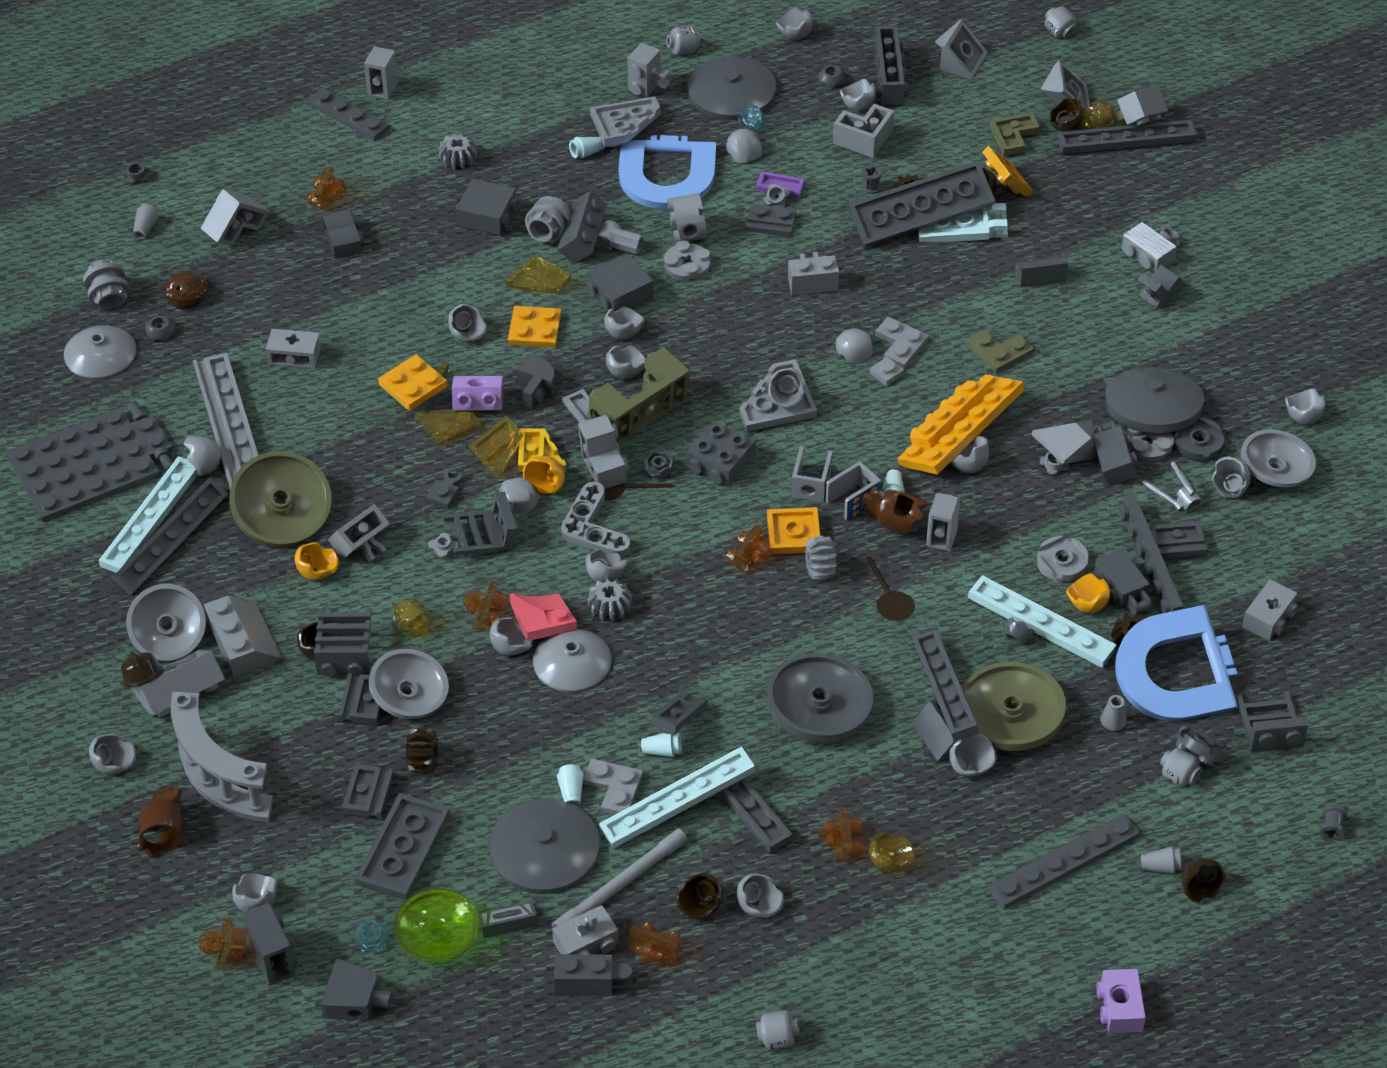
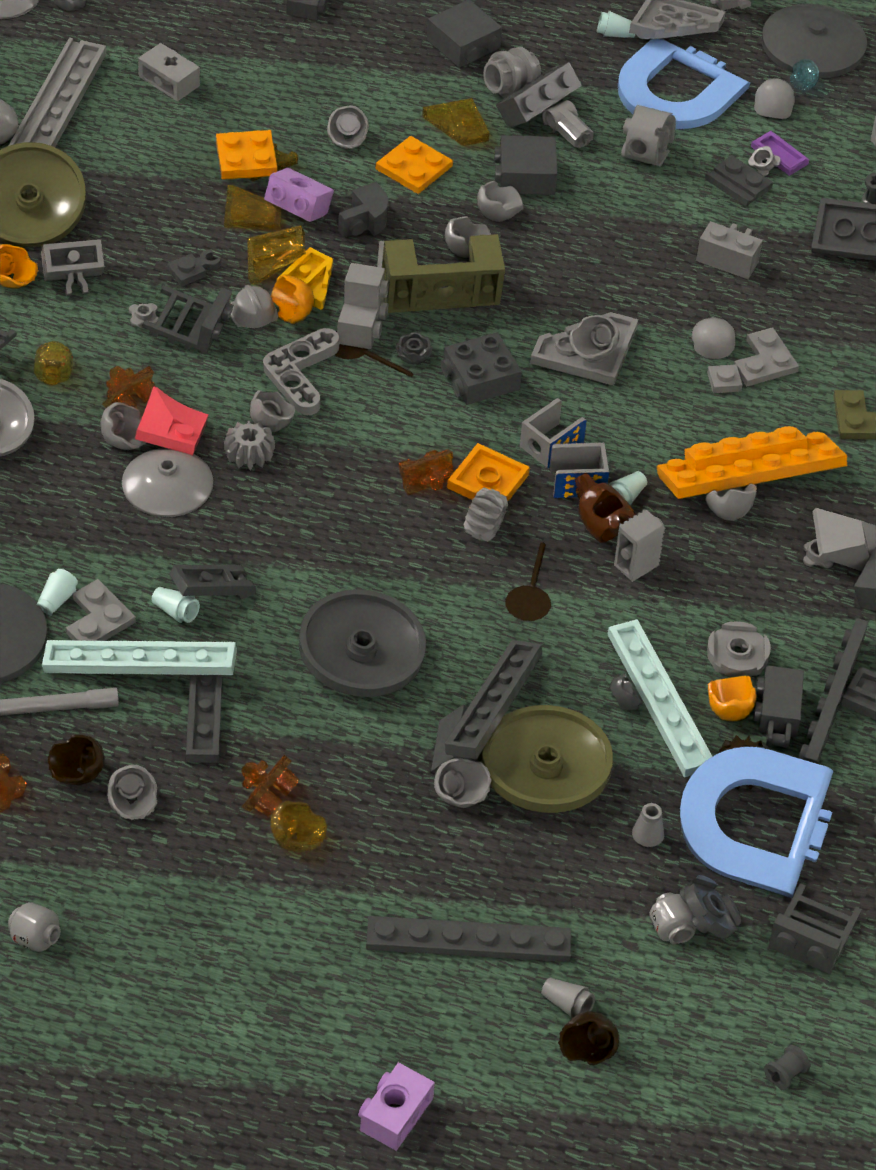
camera: 30 degrees right, 0 degrees up
(686, 251) = (622, 166): light grey plate -> none

